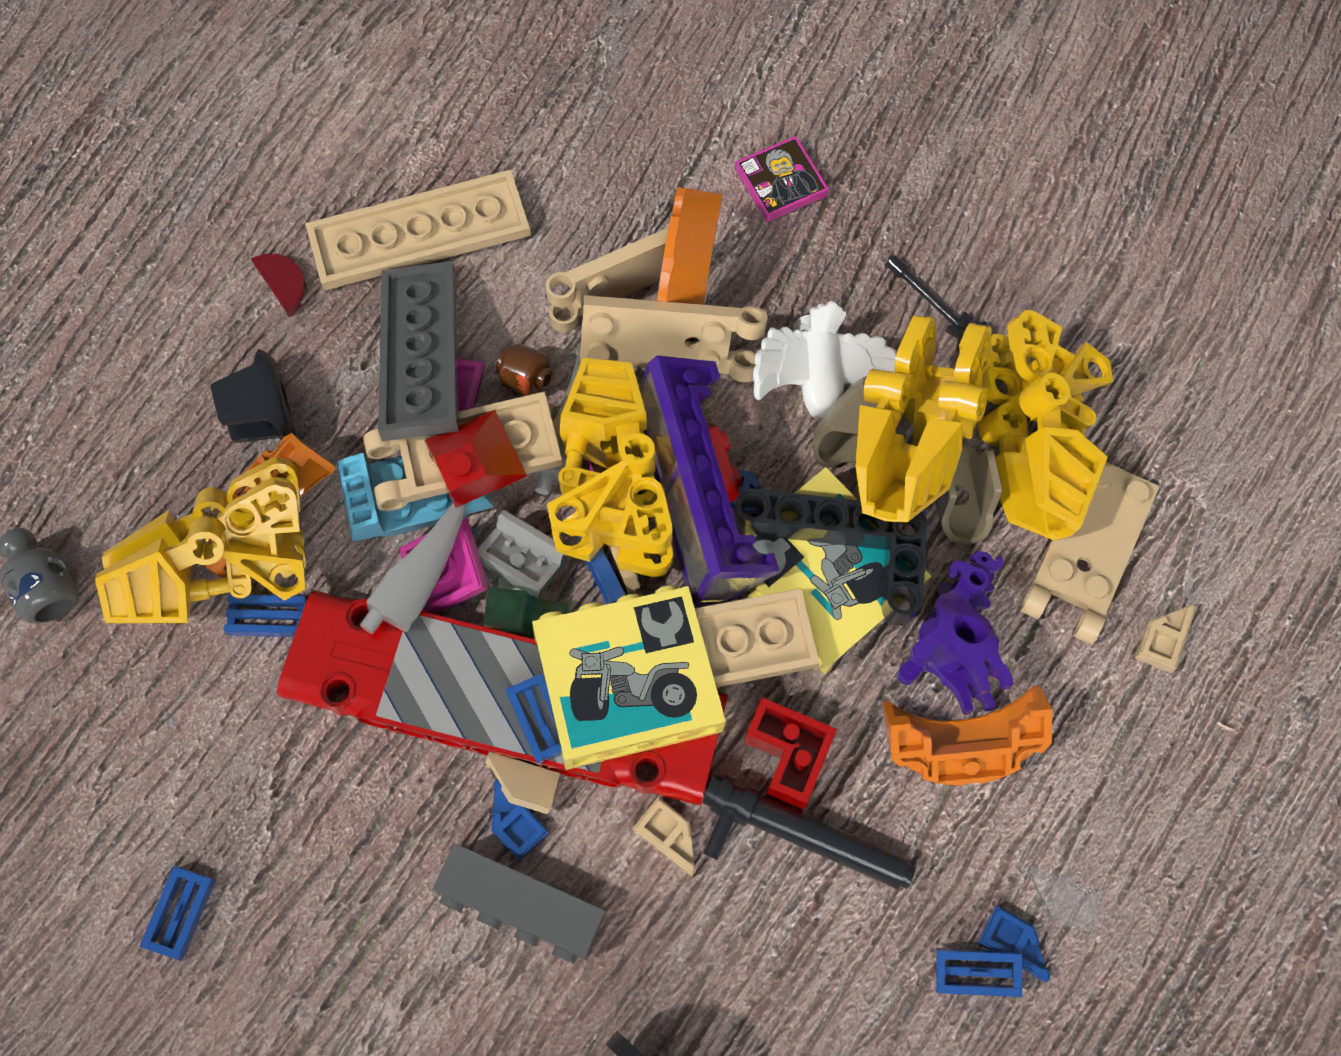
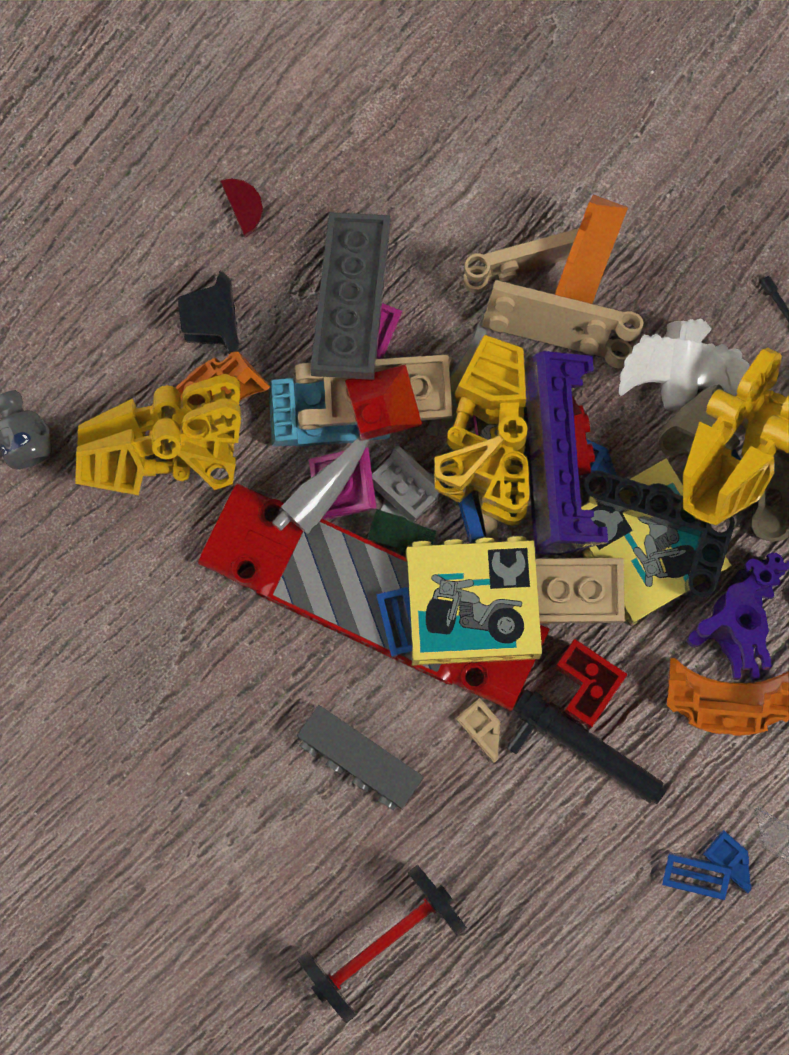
camera: 15 degrees right, 10 degrees up
(191, 921) = (125, 697): blue tile -> none
(235, 613) = (169, 488): blue tile -> none
(417, 229) = (365, 178): tan plate -> none
(515, 825) = (365, 696): blue tile -> none
(524, 369) = (434, 325): reddish brown head -> none
(524, 782) = (378, 667): tan tile -> none
(781, 179) = (686, 184): tile -> none

